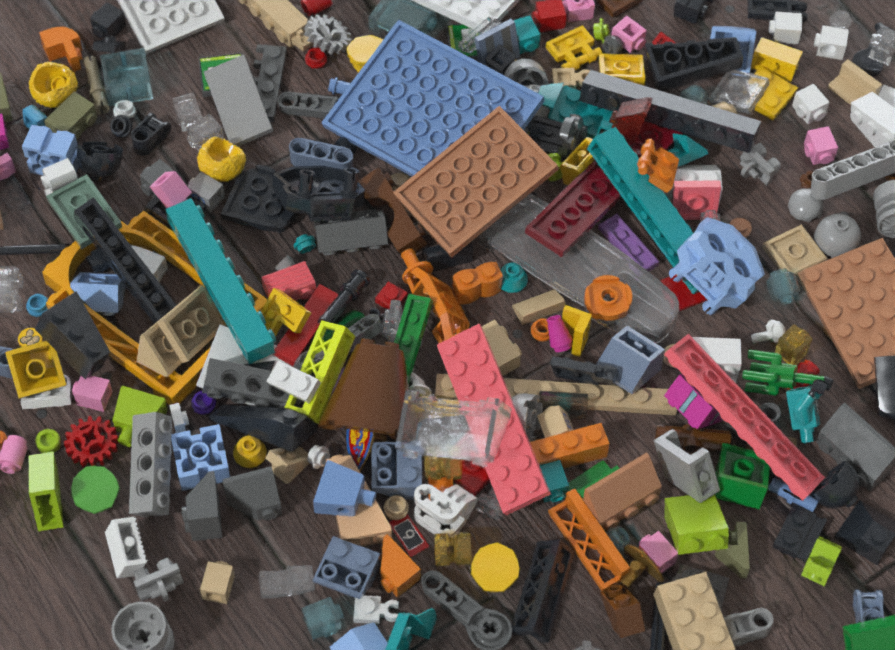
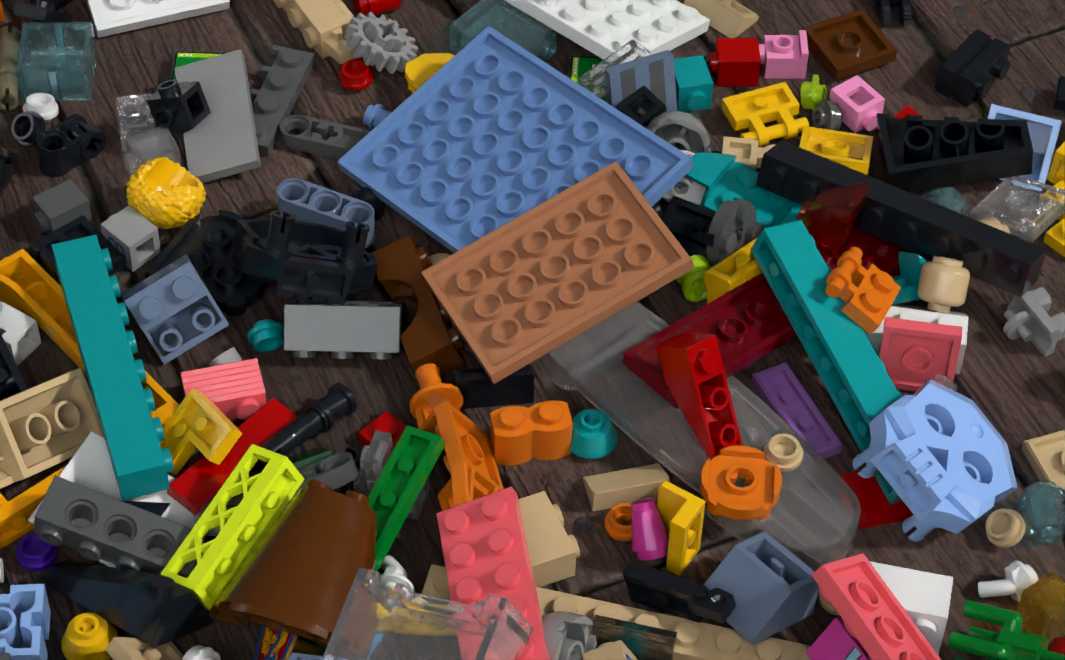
camera: 10 degrees right, 10 degrees down
(170, 189) = (71, 219): bright pink brick -> none
(215, 100) = (178, 105): none -> black brick
(246, 235) = (174, 309): none -> sand blue slope
(293, 382) = (182, 533): white plate -> none
(575, 243) = (700, 387): none -> red slope
(629, 274) = (784, 451): none -> tan plate
(703, 152) = (943, 284): none -> tan head
(742, 226) = (993, 410): nougat plate -> none
(761, 299) = (1005, 527): none -> tan plate

